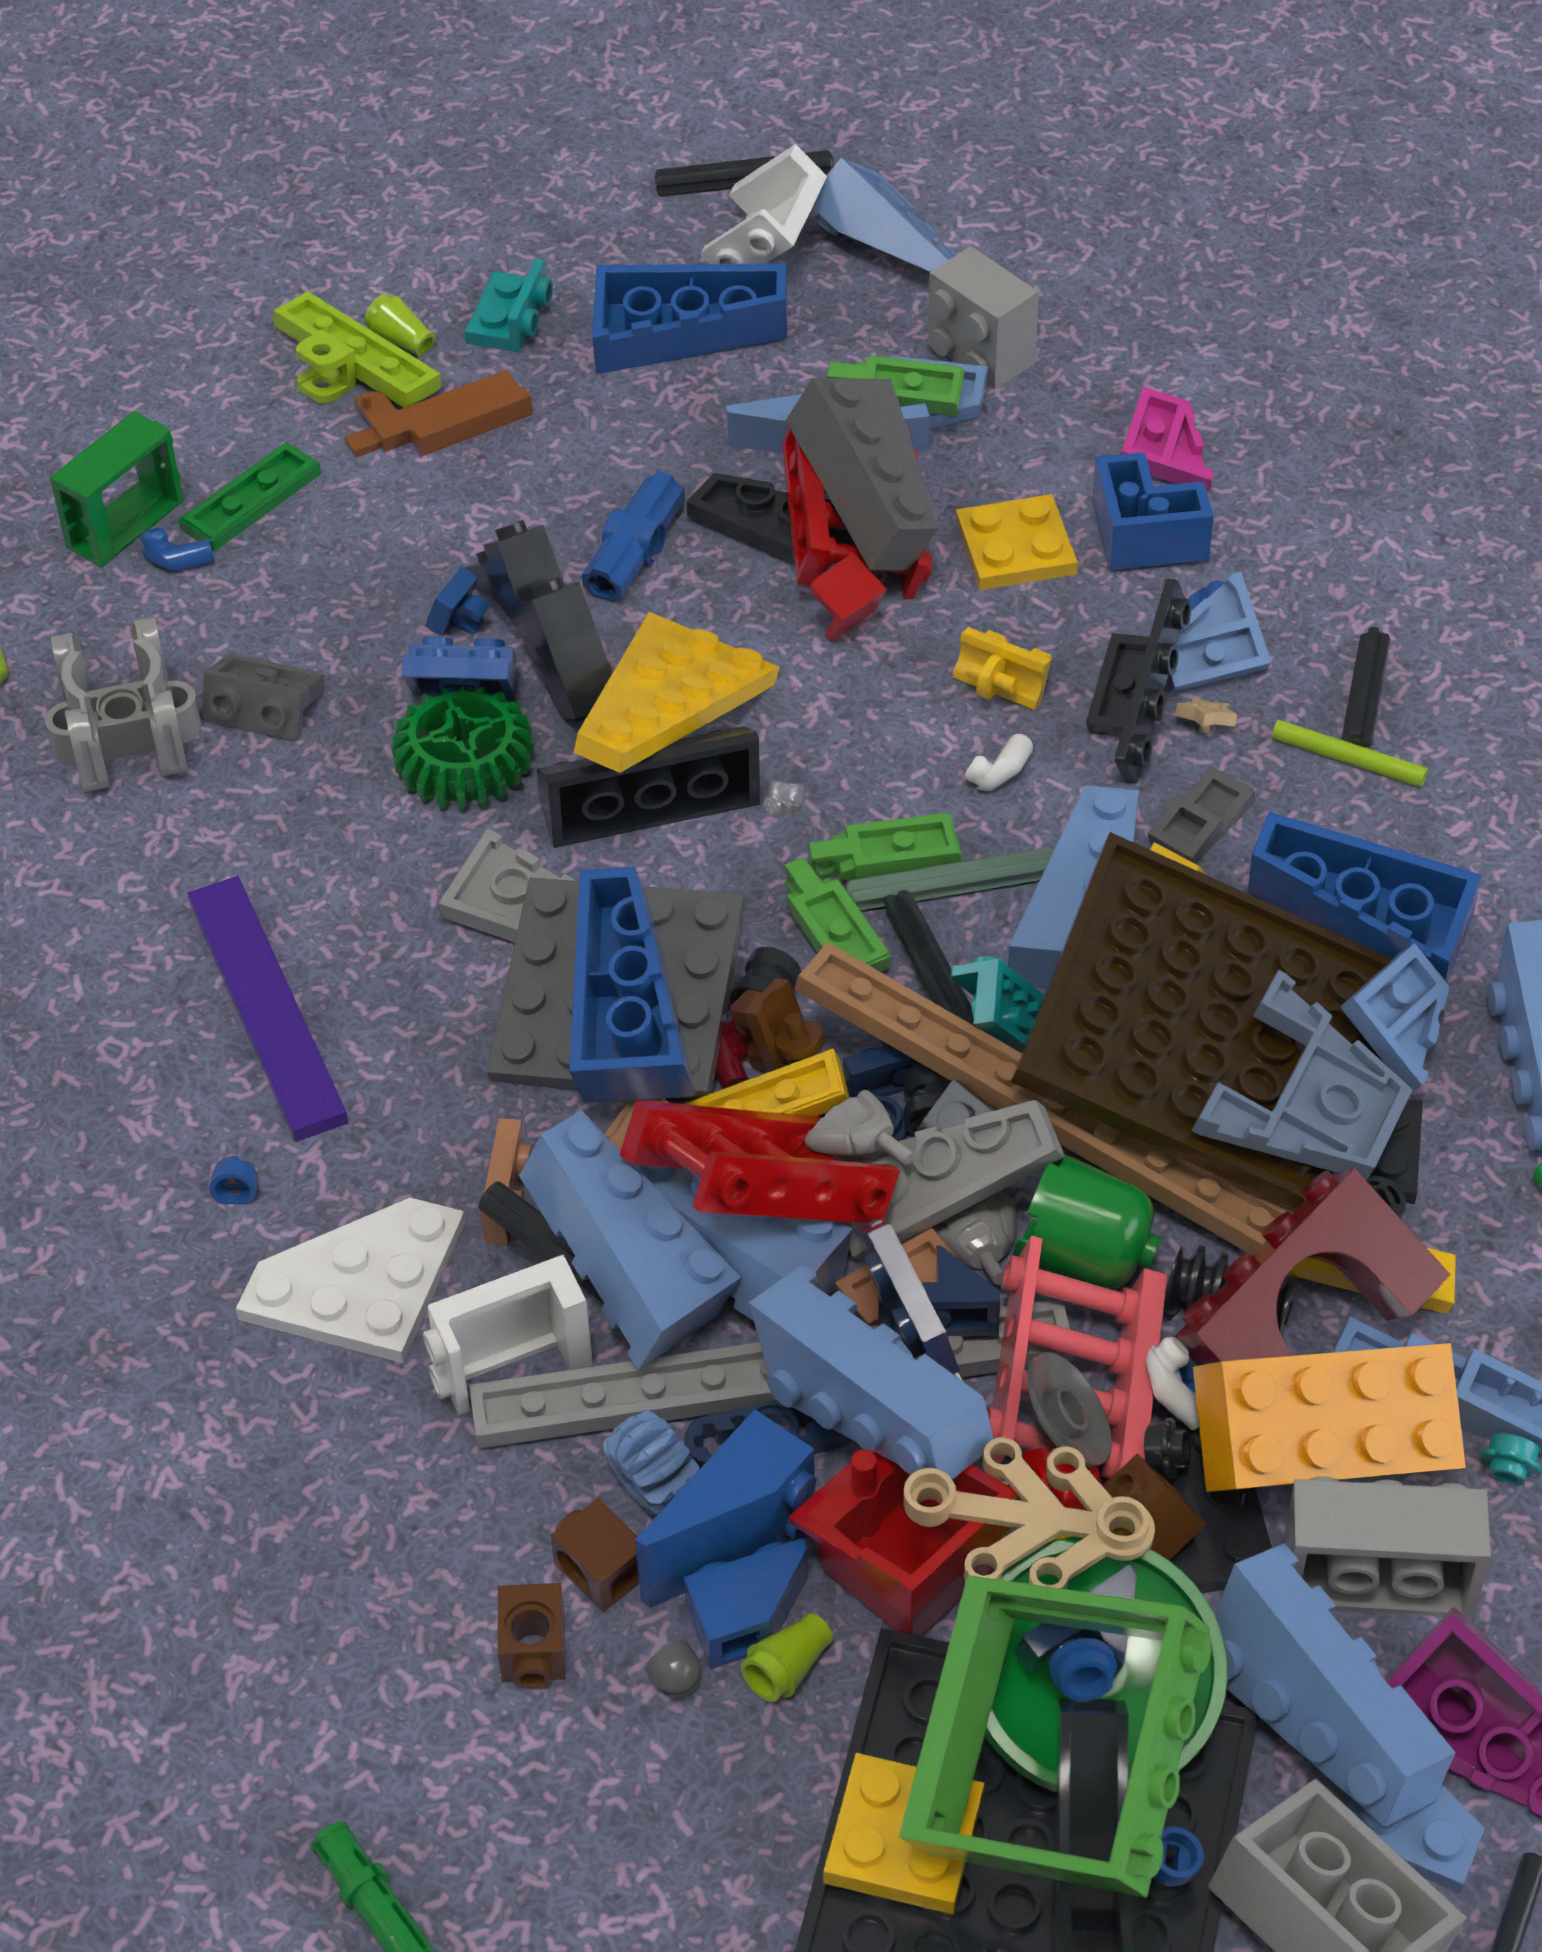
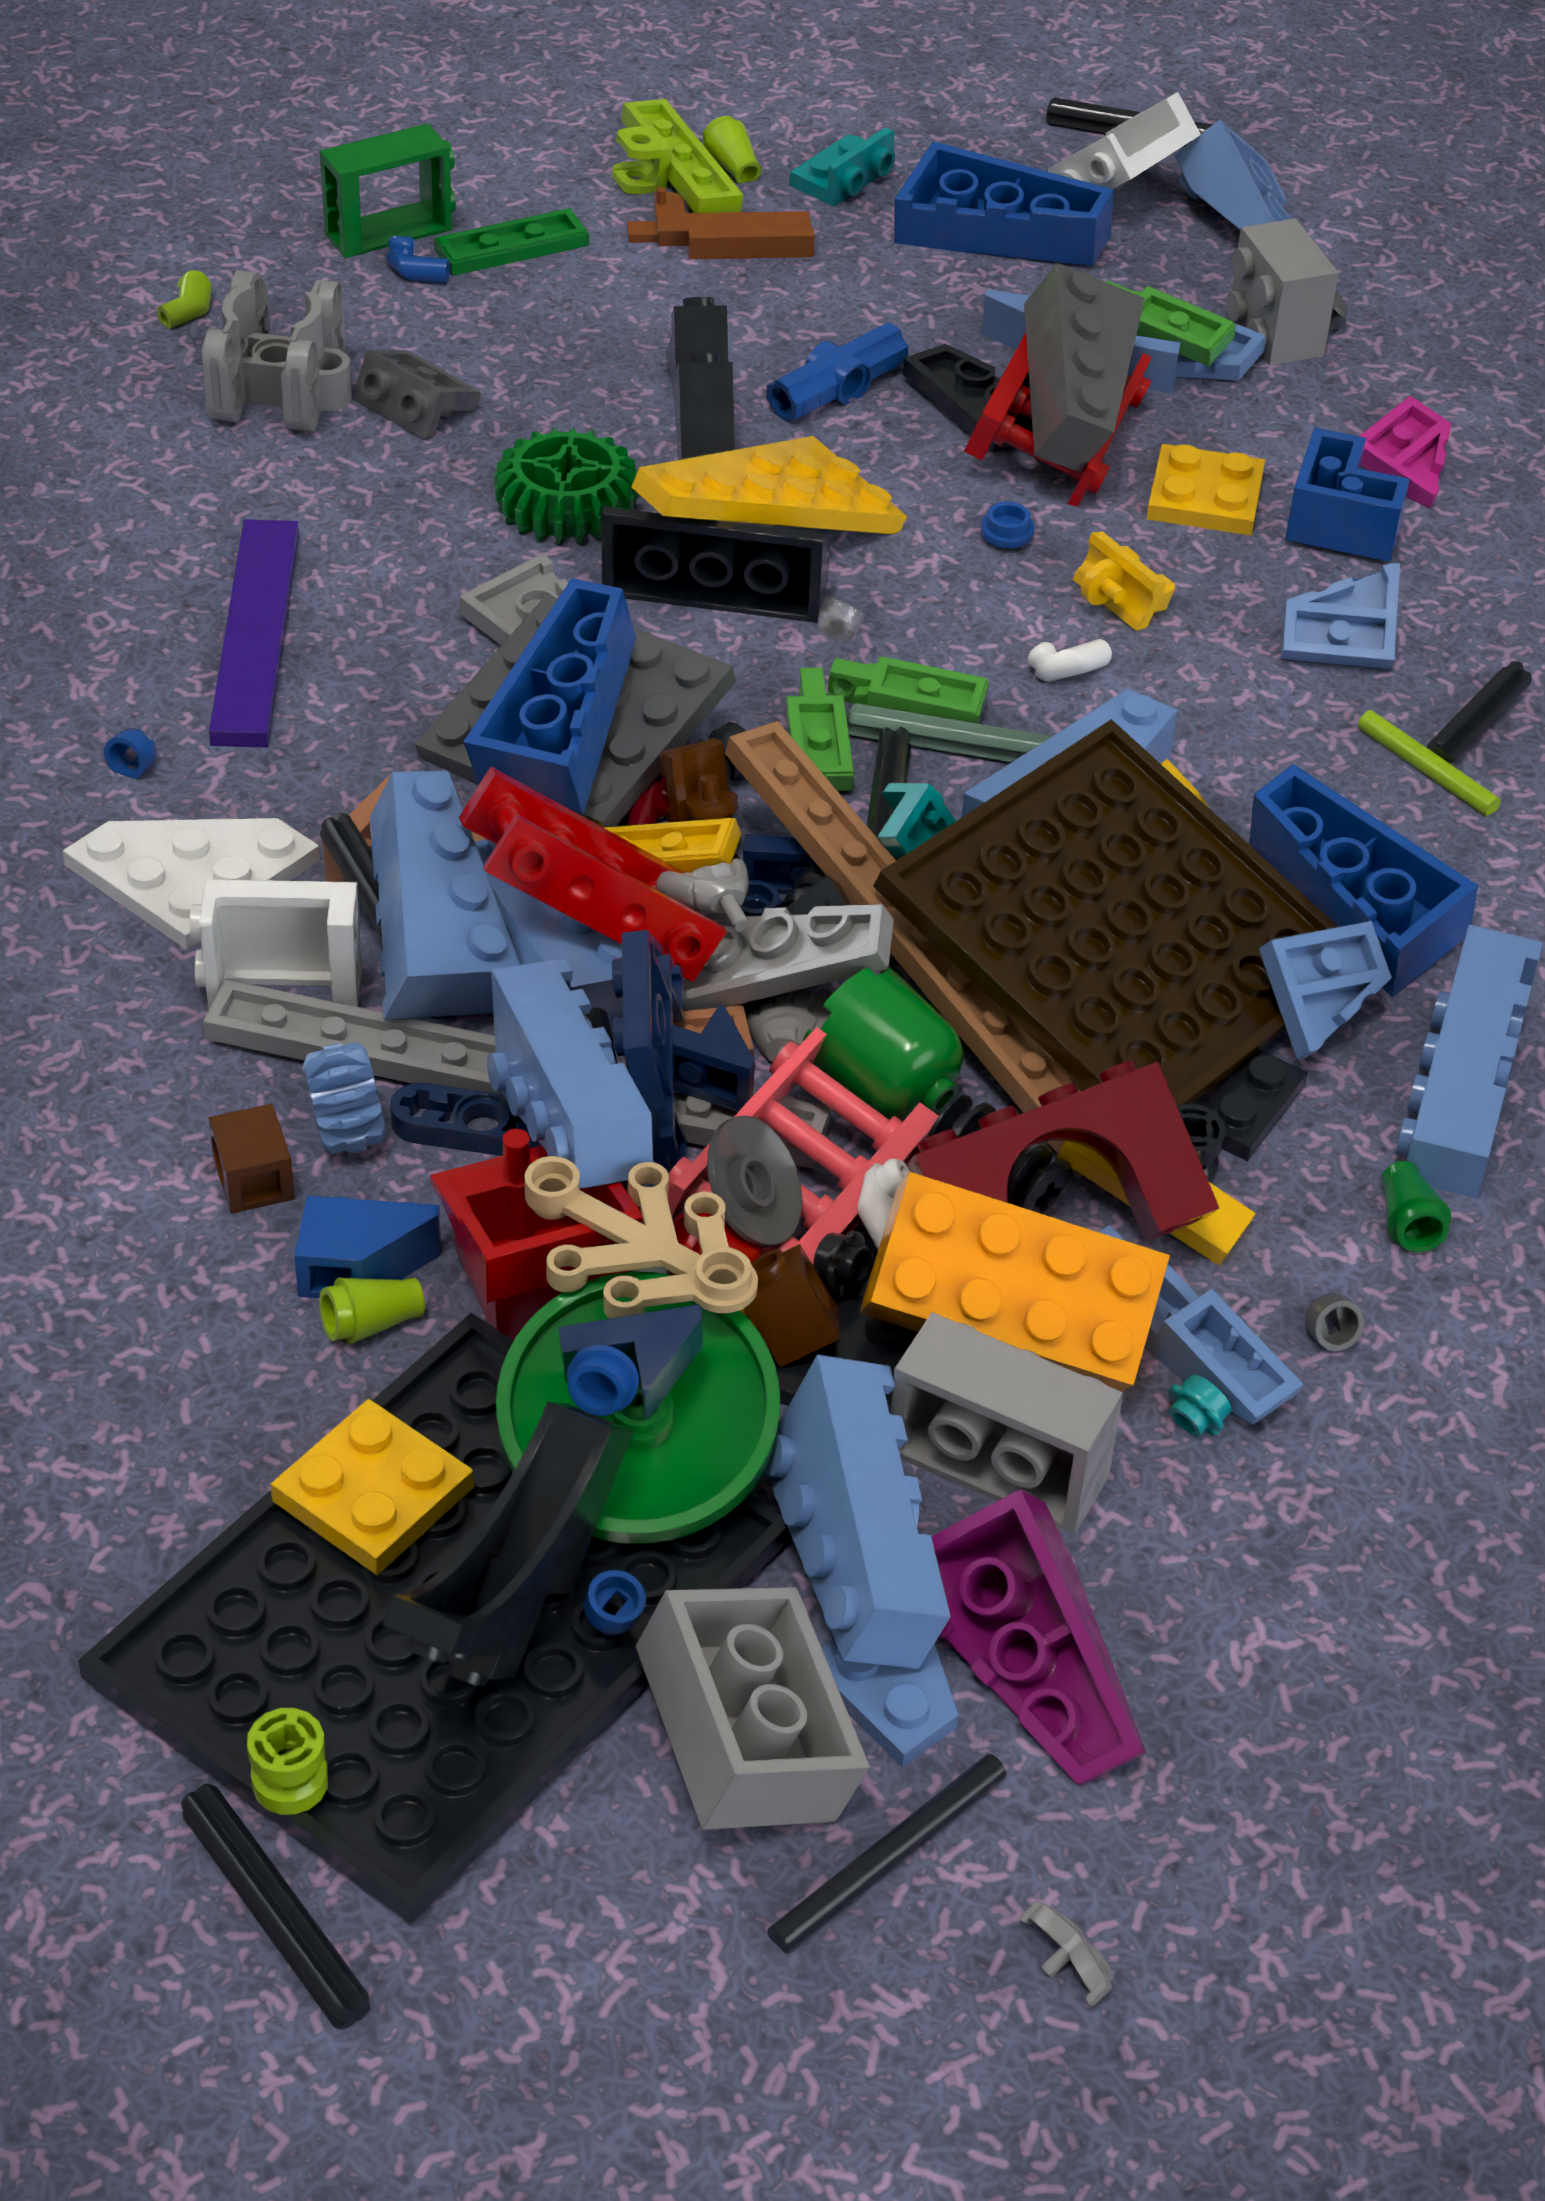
camera: 20 degrees right, 5 degrees down
(447, 665) = (590, 407): blue plate -> none
(458, 605) = (635, 373): blue tile -> none
(525, 1612) = (145, 1197): reddish brown brick -> none
(675, 1669) = (259, 1277): dark grey hinge -> none
(727, 1507) = (374, 1146): blue slope -> none
(848, 594) = (1004, 473): red panel -> none
(871, 644) = (1007, 525): none -> blue plate
(964, 1707) = (471, 1358): bright green window -> none
(1134, 680) = (1244, 626): black bracket -> none
(1203, 817) = (1232, 771): dark grey slope -> none
(1206, 713) = (1300, 682): tan piece -> none
(1334, 1105) = (1199, 1025): sand blue wing -> none

